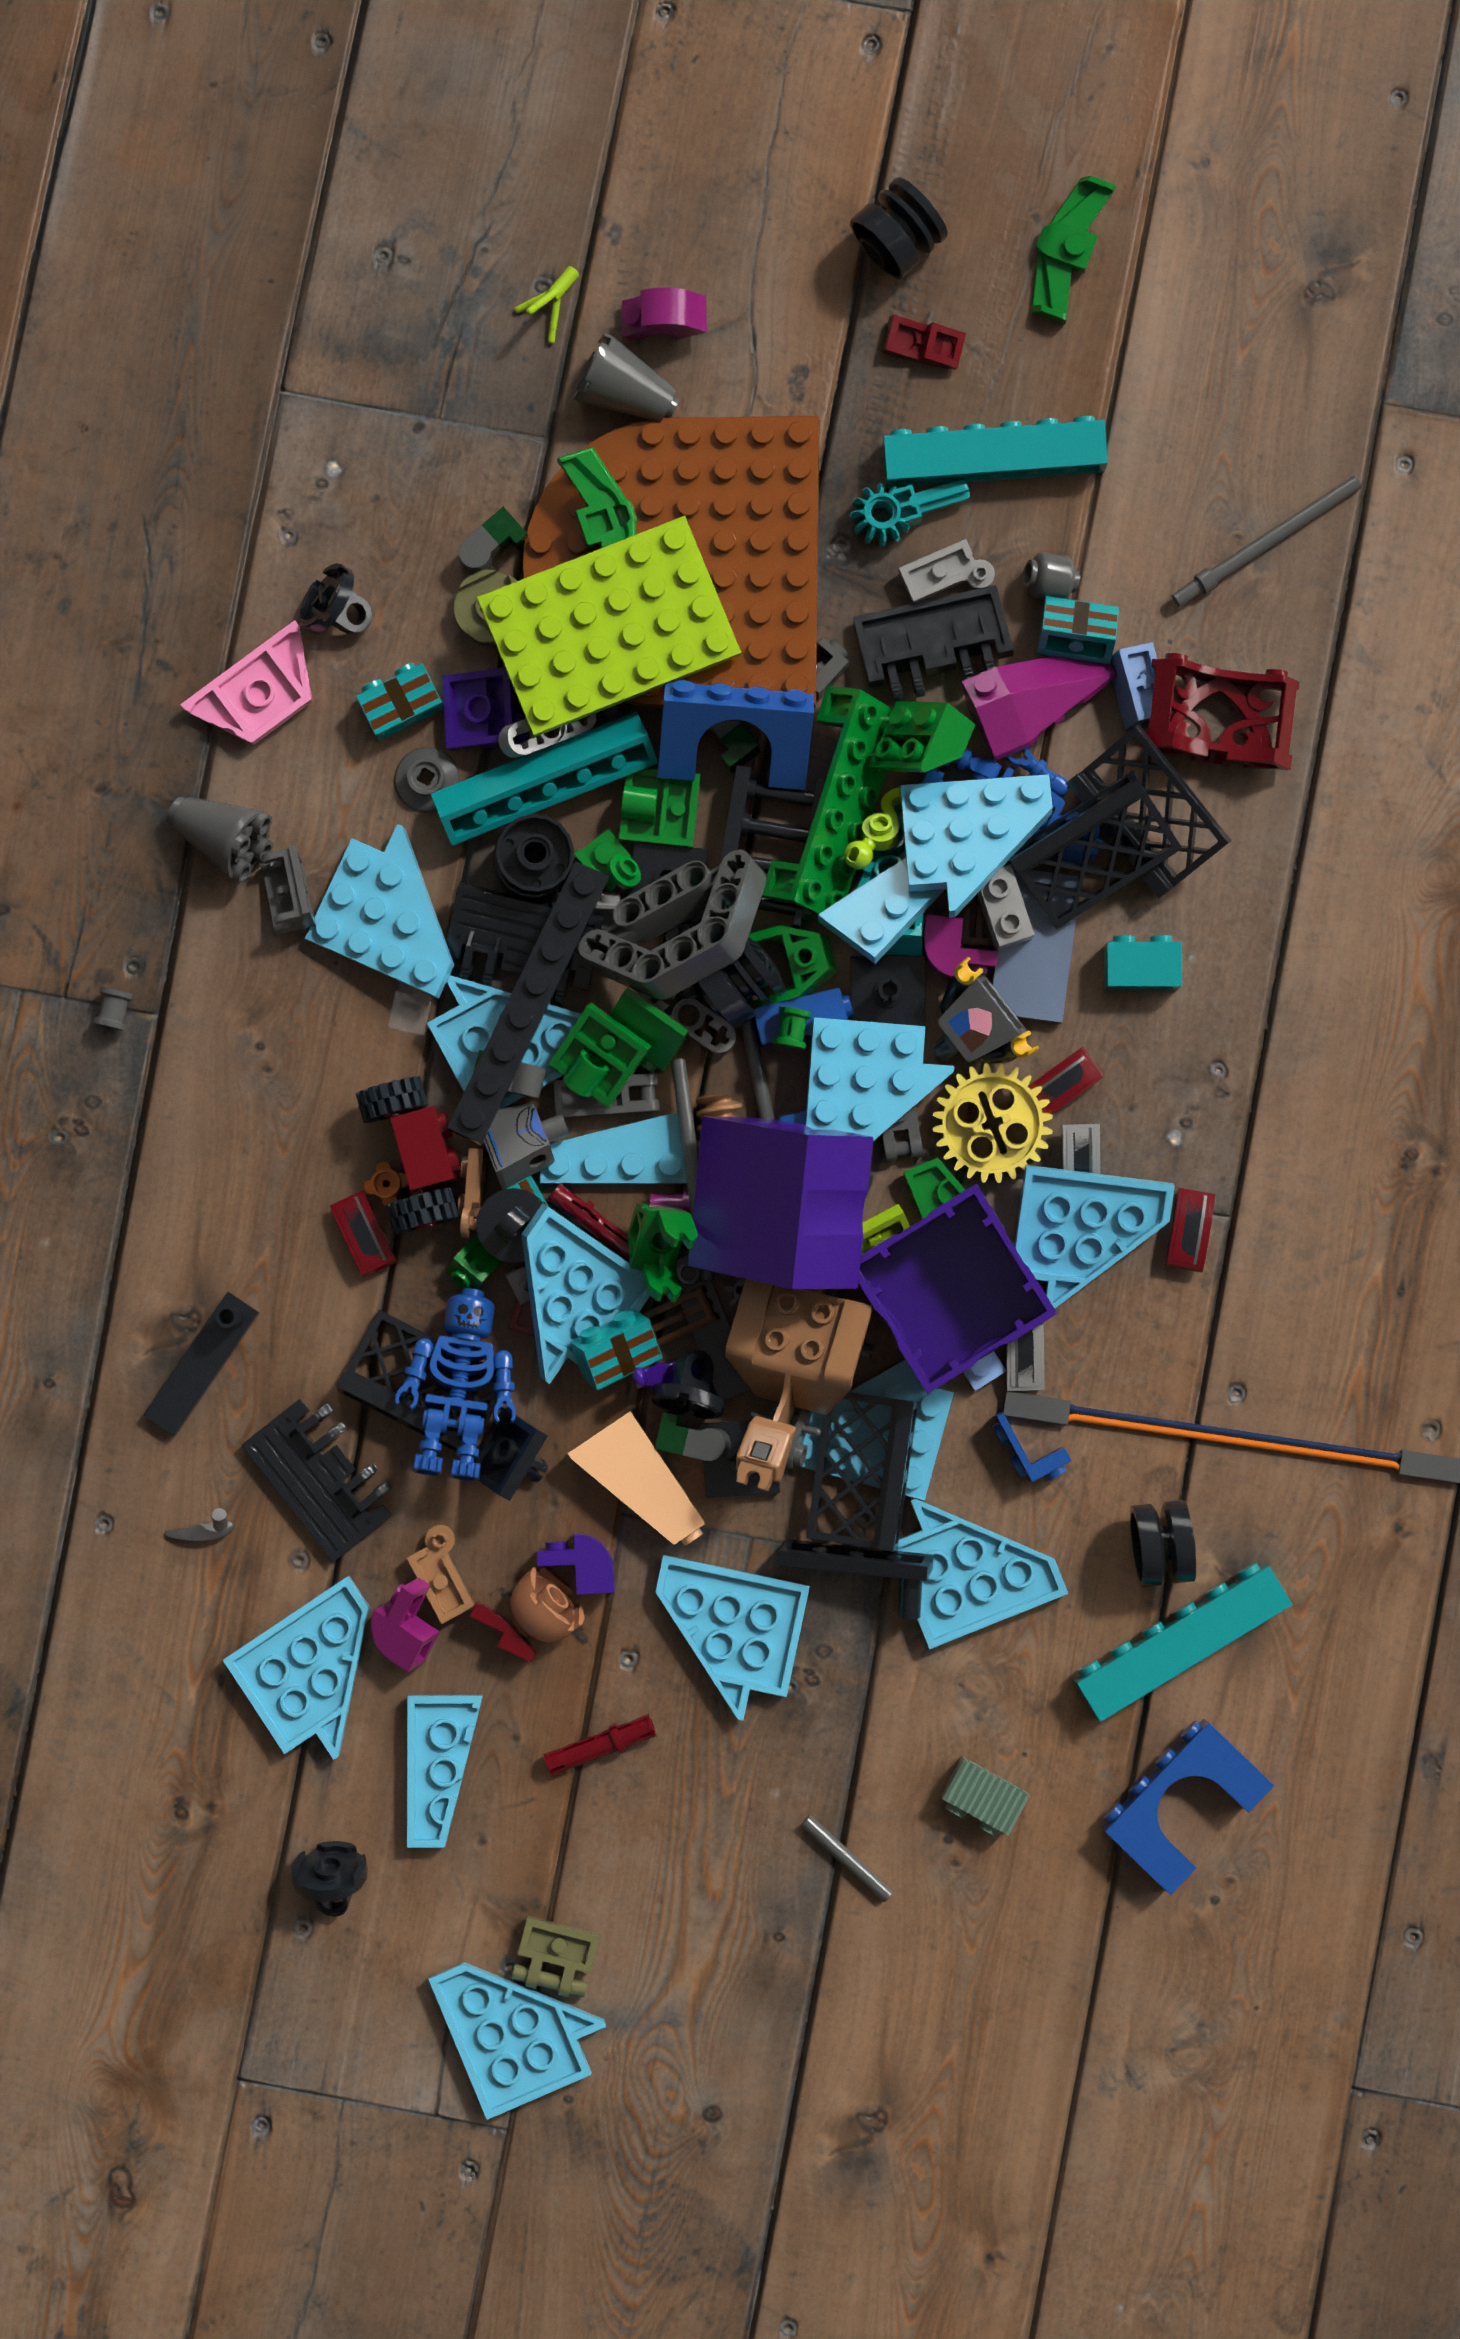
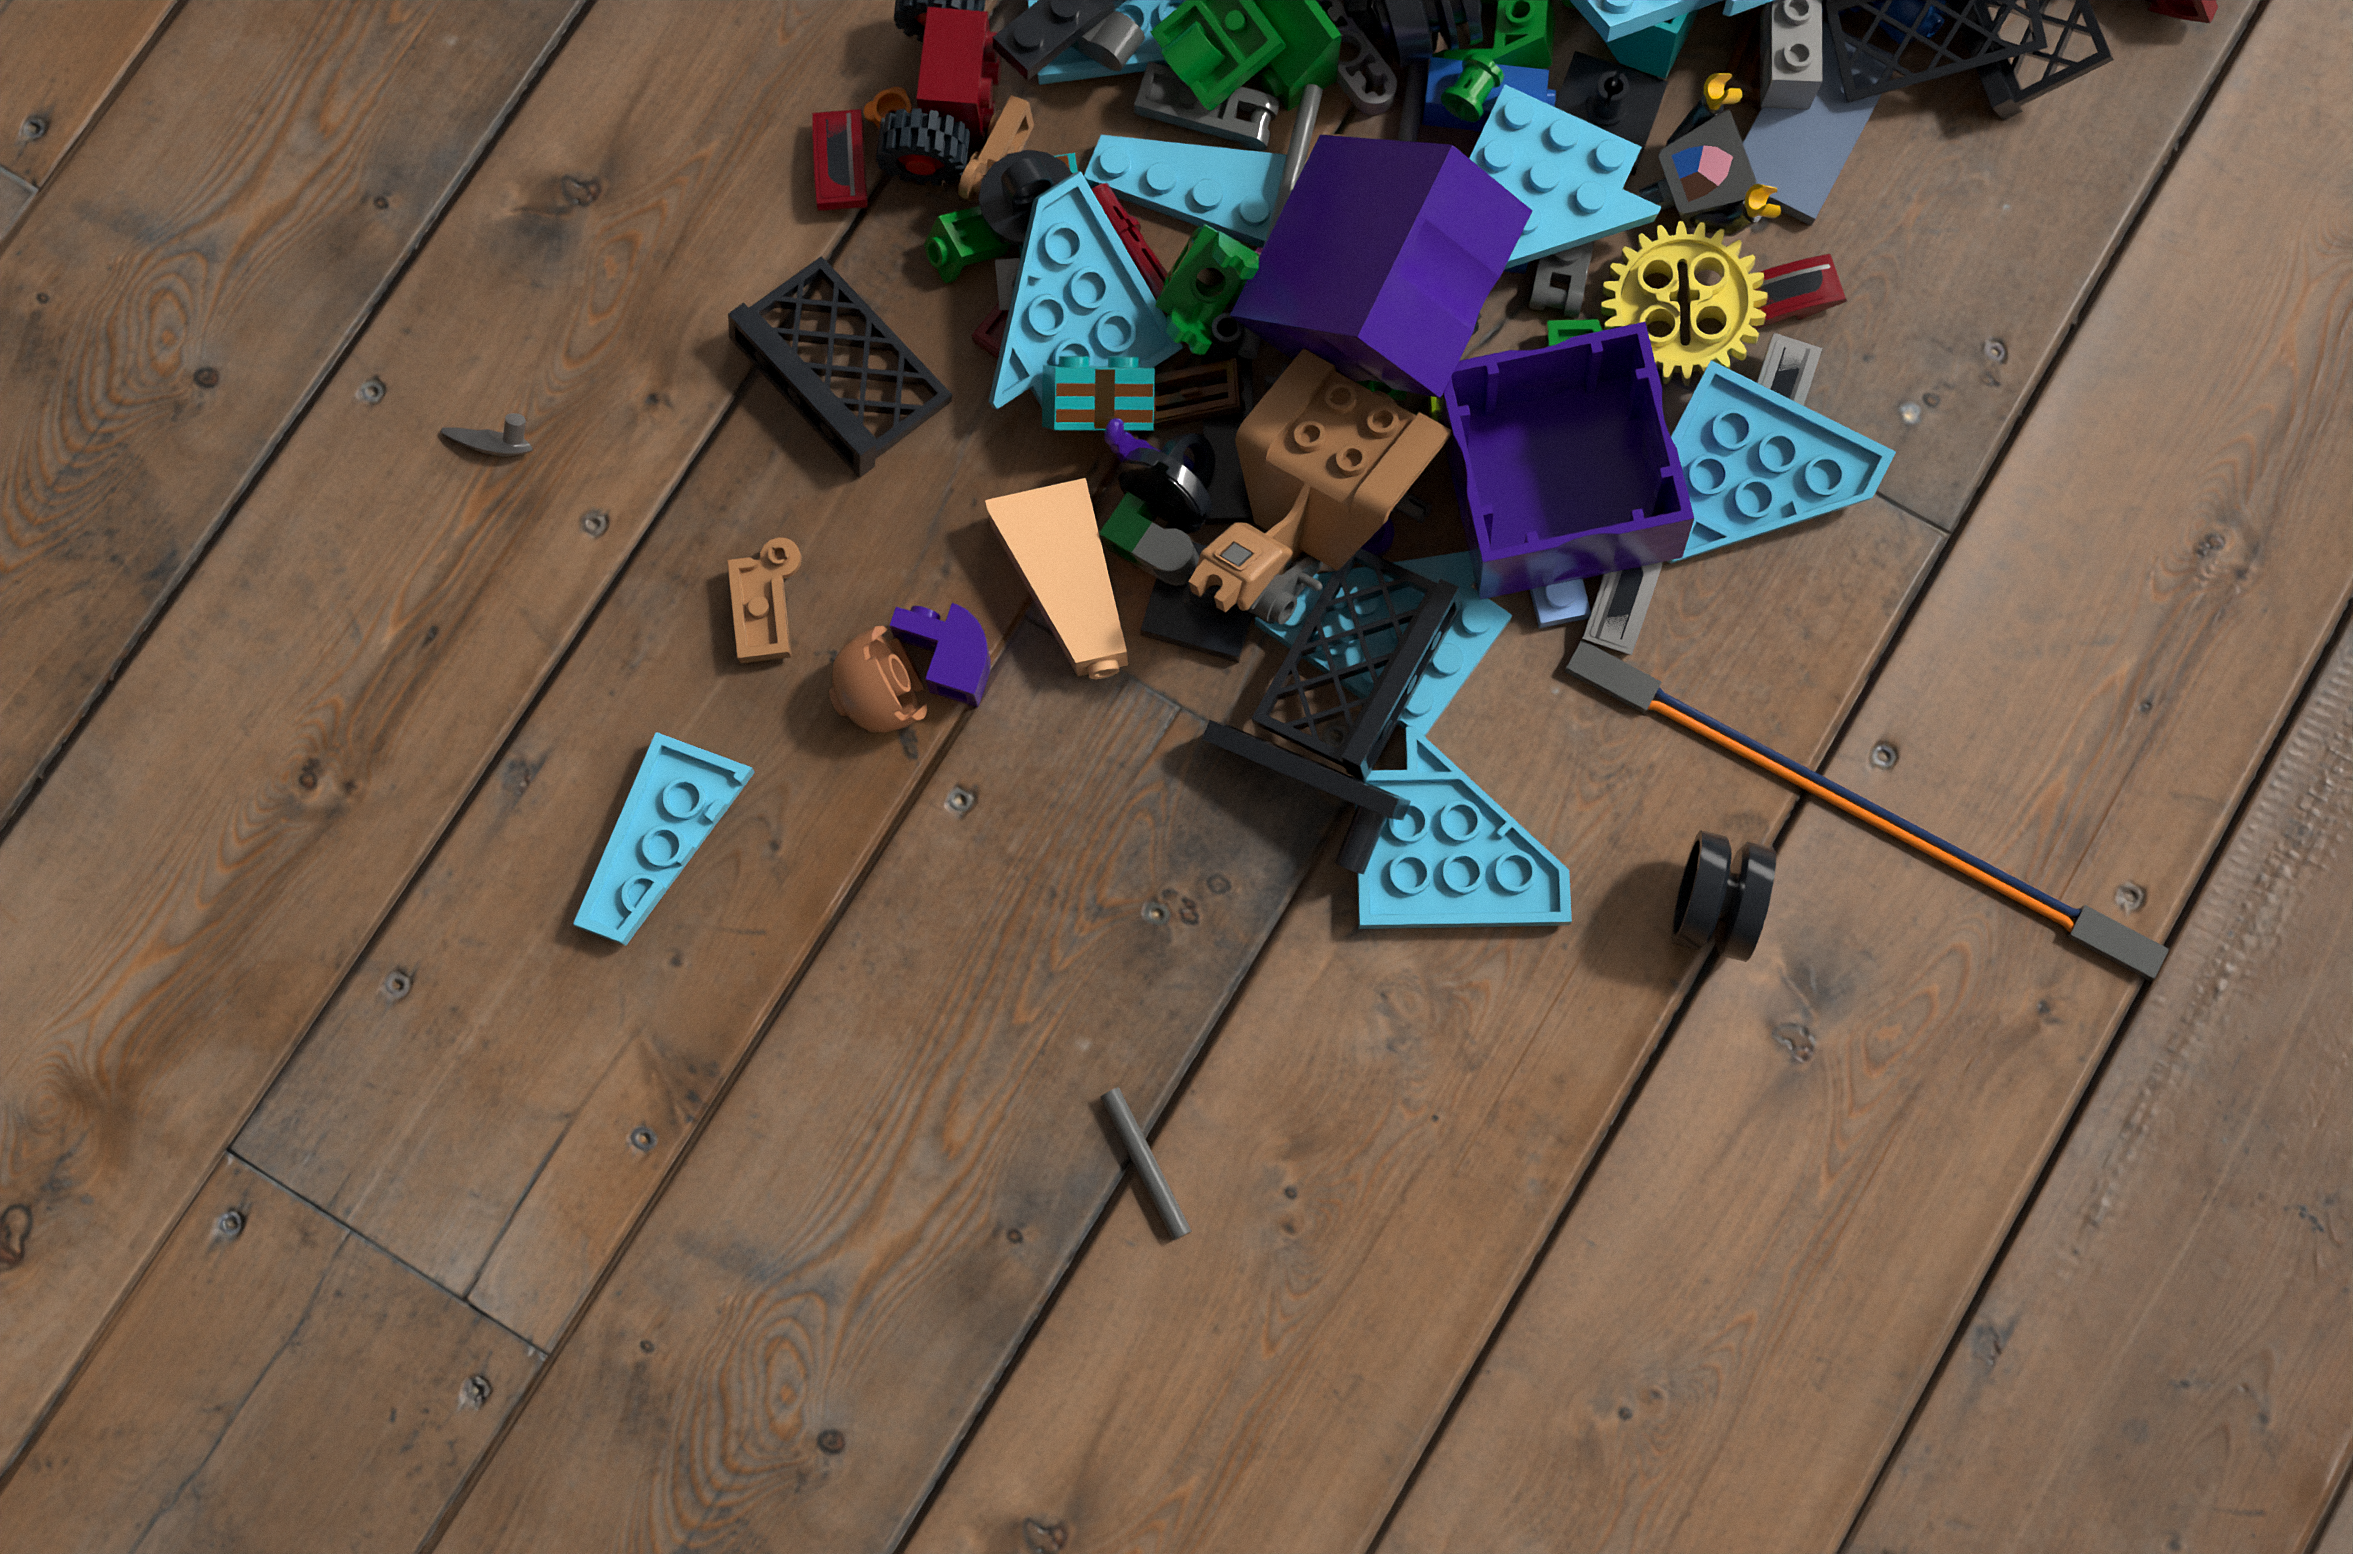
camera: 25 degrees right, 10 degrees down
(201, 1363) = (577, 240): black piece -> none
(306, 1668) = (542, 652): medium azure wing -> none
(315, 1481) = (657, 436): black hinge -> none
(330, 1875) = (457, 917): black tile -> none
(398, 1630) = (679, 641): magenta brick -> none
(468, 1322) = (904, 352): blue piece -> none
(509, 1455) = (910, 479): black tile -> none
(511, 1639) = (816, 706): dark red slope -> none
(511, 2036) = (605, 1229): medium azure wing -> none
(521, 1142) = (1078, 111): dark grey torso -> none
(559, 1946) = (717, 1130): olive plate -> none
(609, 1741) = (879, 890): dark red pin -> none
(736, 1624) = (1117, 803): medium azure wing -> none
(944, 950) = (1697, 59): magenta brick -> none
(984, 1796) = (1361, 1148): sand green brick -> none
(1048, 1465) = (1602, 748): blue bracket -> none
(1136, 1822) = (1680, 1203): blue arch -> none
(1142, 964) = (1943, 185): teal brick -> none
(1182, 1641) = (1703, 1041): teal brick -> none
(1190, 1230) = (1893, 526): dark red slope -> none

